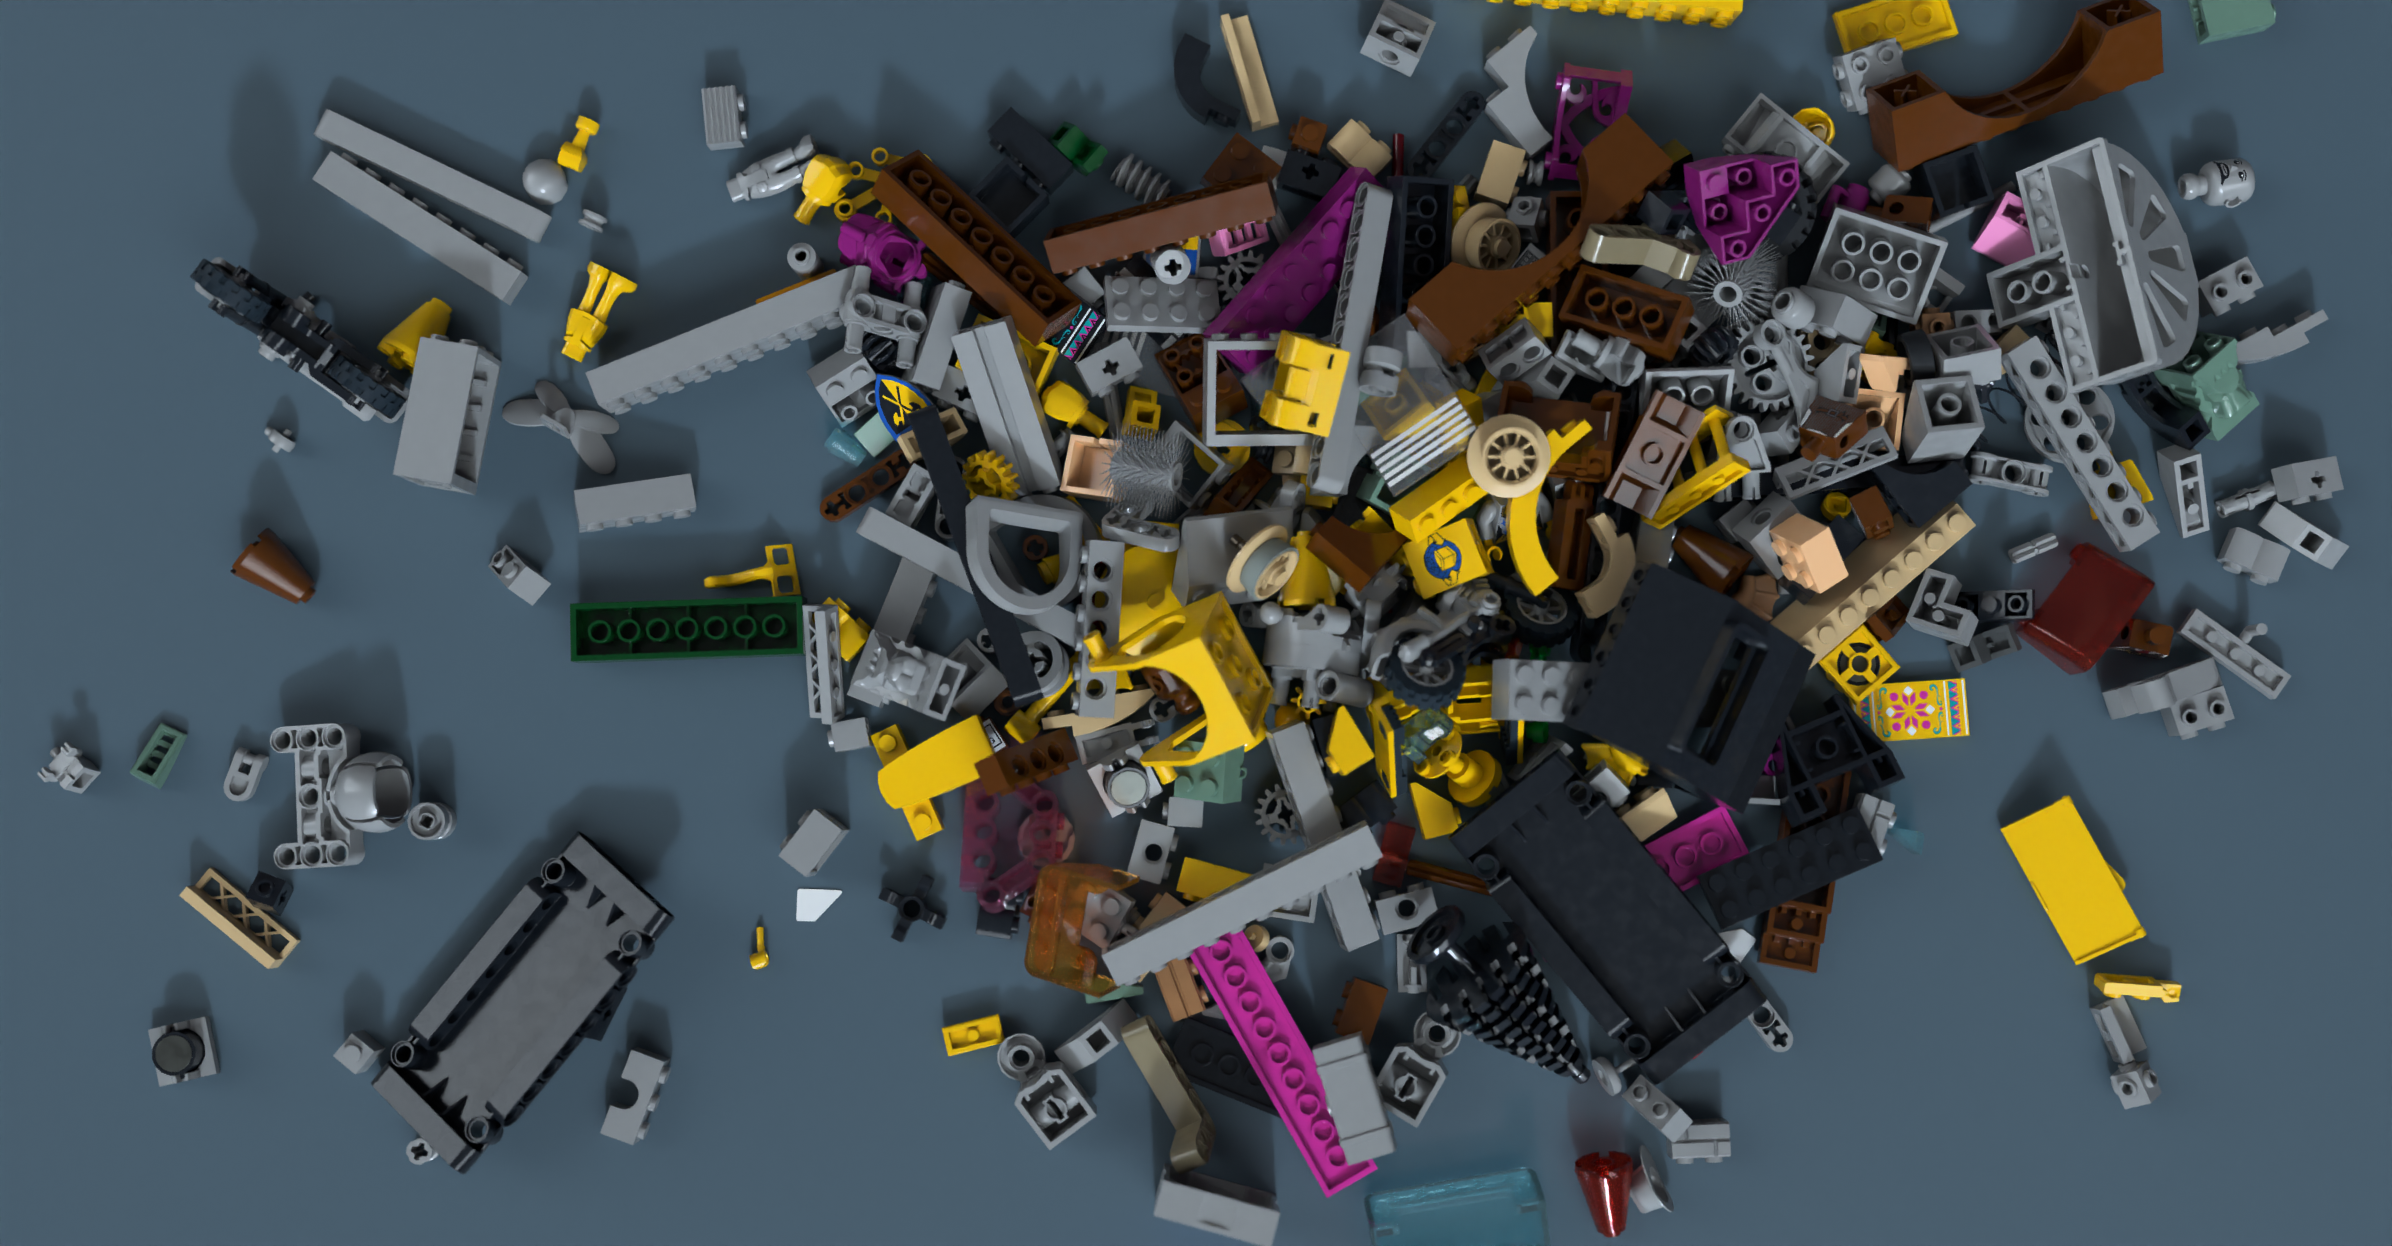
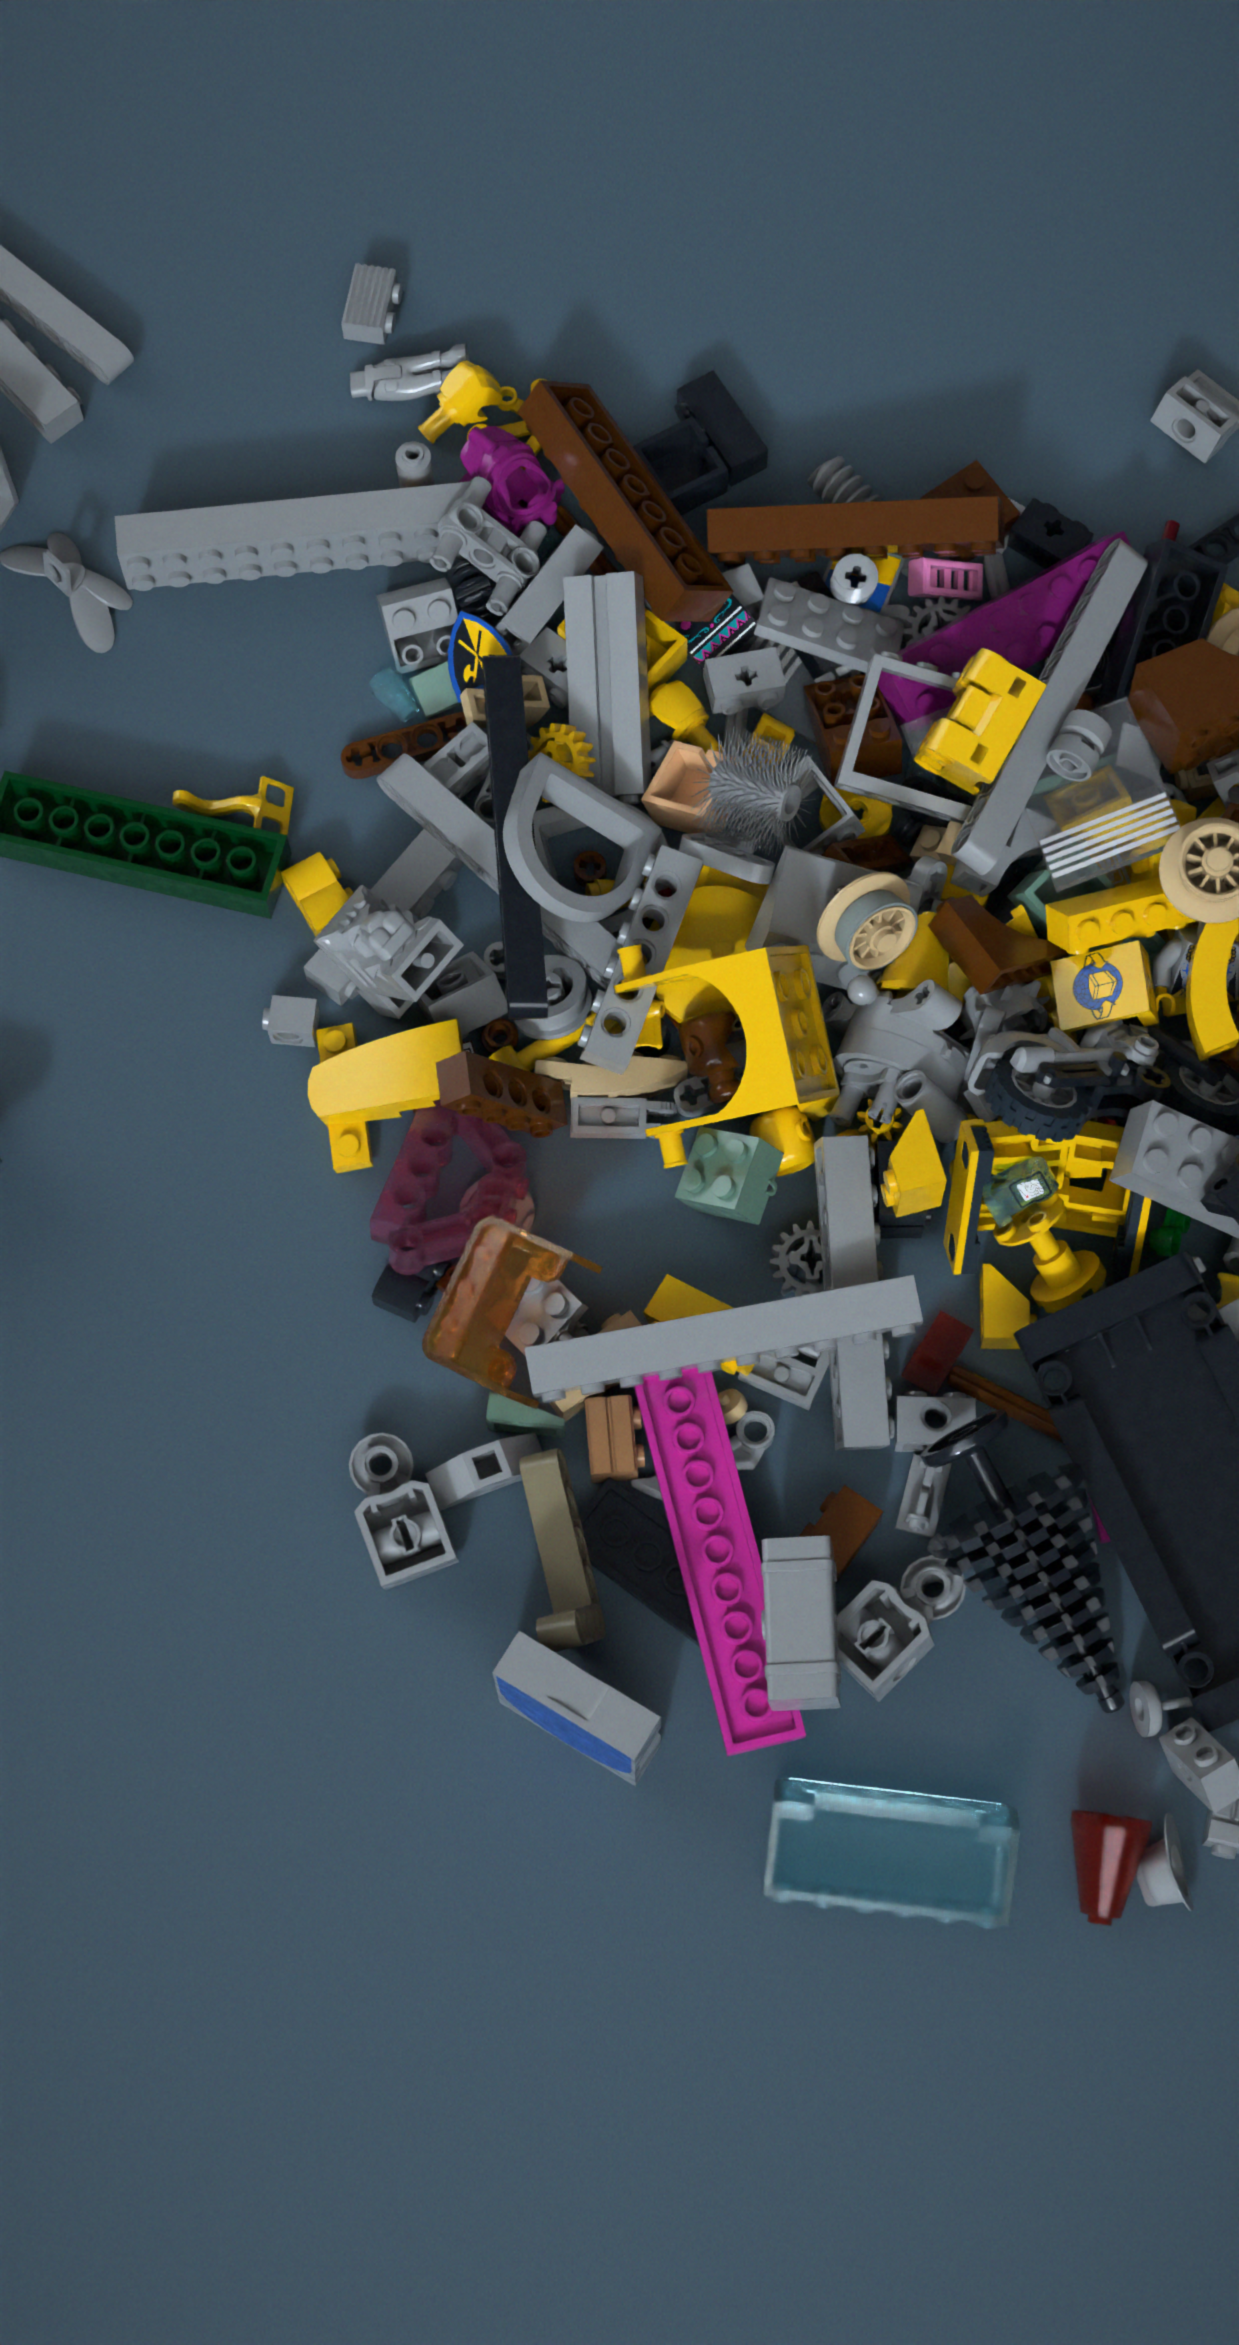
camera: 20 degrees right, 15 degrees down
(545, 181) = (139, 321): light grey hair -> none
(573, 154) = (182, 299): yellow leg -> none
(587, 329) = (131, 484): yellow piece -> none
(592, 221) = (180, 374): light grey bush -> none
(634, 502) = (119, 685): light grey wedge -> none
(761, 958) = (91, 1258): yellow hand -> none
(812, 842) = (205, 1128): light grey piece -> none
(814, 902) = (180, 1212): white sticker -> none
(828, 662) = (293, 922): light grey fence -> none
(900, 902) = (321, 1228): black pin -> none
(973, 1034) = (327, 1424): yellow plate -> none
(1077, 148) = (784, 442): dark green brick -> none
(1125, 781) = (621, 1167): piece -> none
(1148, 834) = (628, 1240): light grey brick -> none
(1183, 812) = (682, 1225): light grey brick -> none
(1195, 99) = (939, 426): black arch -> none
(1249, 72) = (1009, 411): tan fence -> none
(1308, 136) = (1063, 490): reddish brown brick -> none
(1358, 149) = (1117, 512): tan brick -> none
(1369, 804) = (932, 1278): black brick -> none

